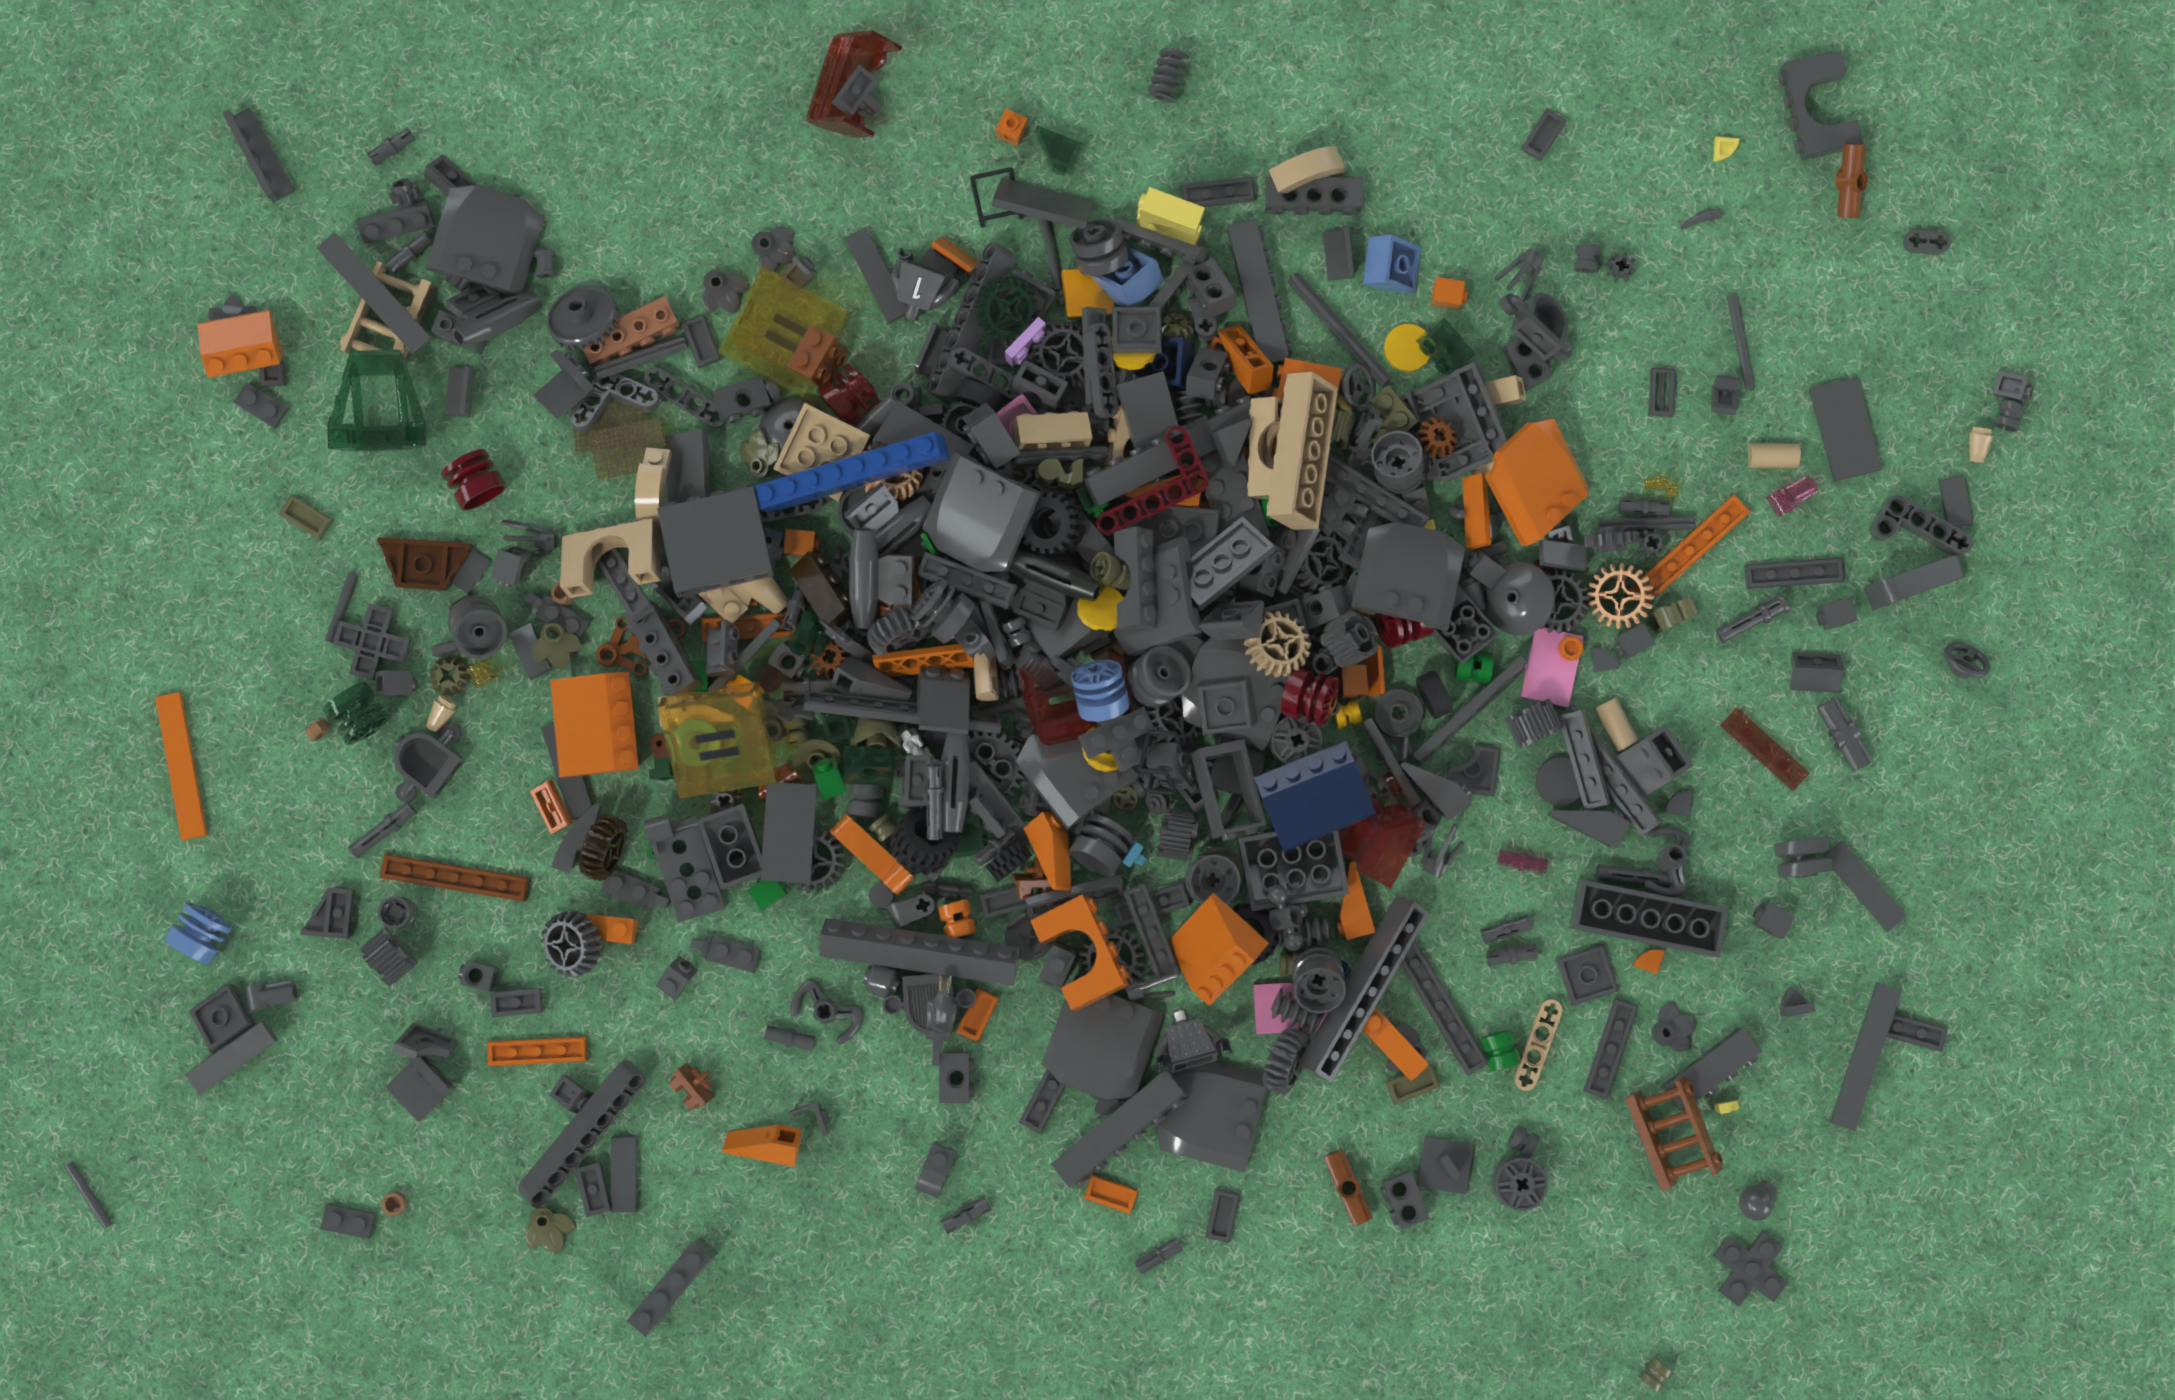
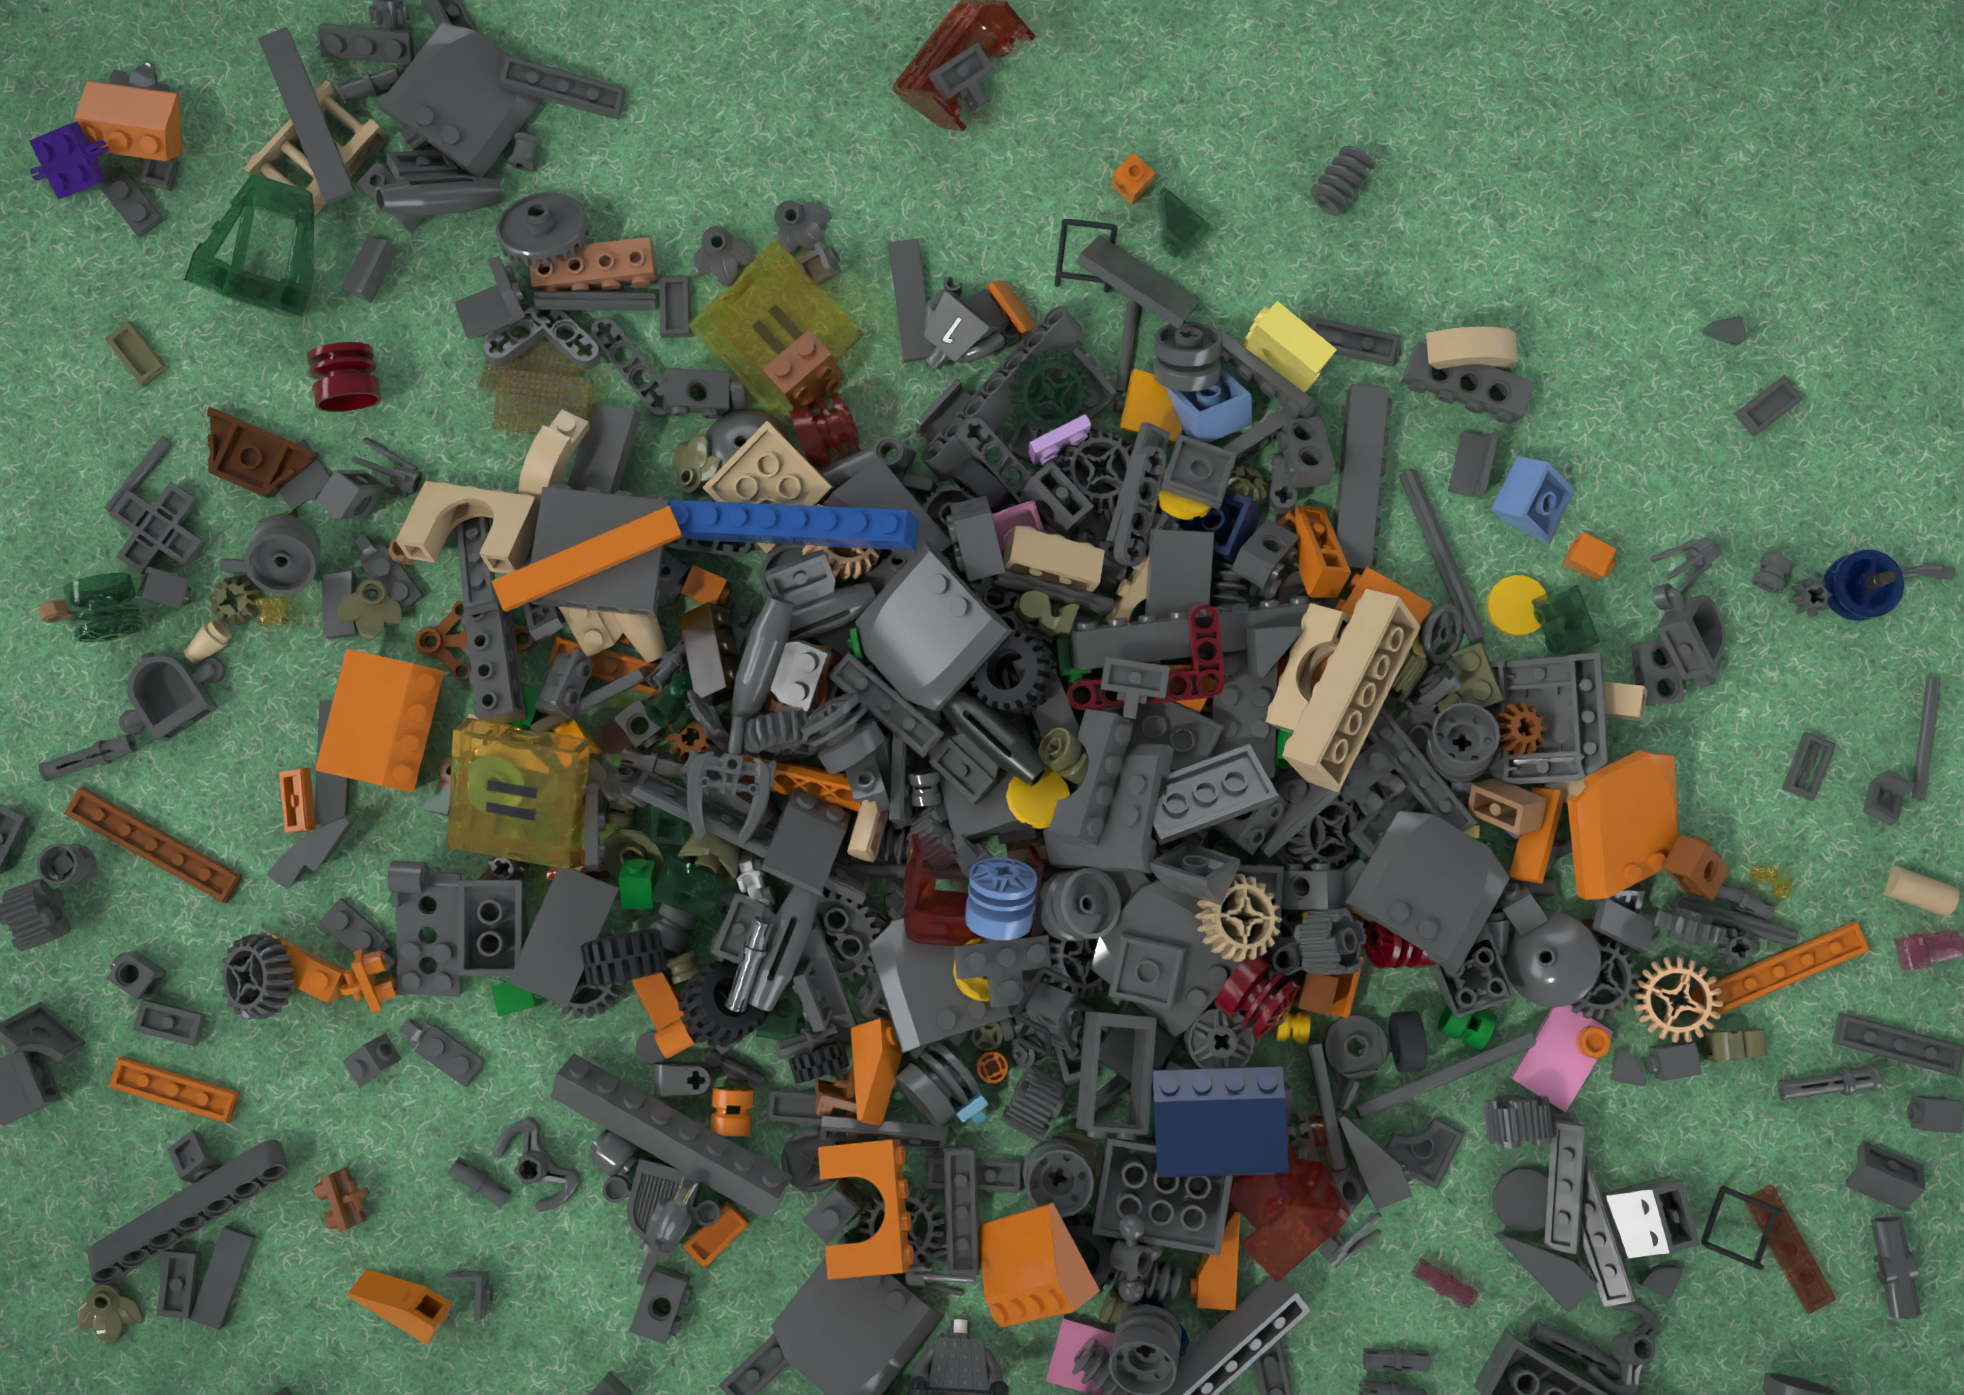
camera: 20 degrees right, 0 degrees up
(204, 389) = (68, 160): none -> dark purple plate
(557, 205) = (561, 87): none -> dark grey tile
(603, 847) = (335, 873): dark brown gear -> none
(650, 907) = (364, 968): none -> orange hips
(710, 549) = (586, 559): none -> orange tile
(782, 744) = (594, 823): none -> dark grey hinge
(839, 830) = (623, 957): none -> black tyre
(870, 665) = (731, 768): none -> dark grey bar
(1137, 820) = (989, 1062): none -> orange wheel
(1142, 499) = (1134, 682): none -> dark grey hinge
(1446, 497) = (1506, 806): none -> medium nougat brick
(1492, 89) = (1727, 330): none -> dark grey slope
(1600, 494) = (1696, 867): none -> dark orange brick
(1616, 724) = (1617, 1154): tan brick -> none
(1655, 245) = (1864, 585): none -> clear blue wheel
(1741, 765) = (1774, 1211): none -> black piece

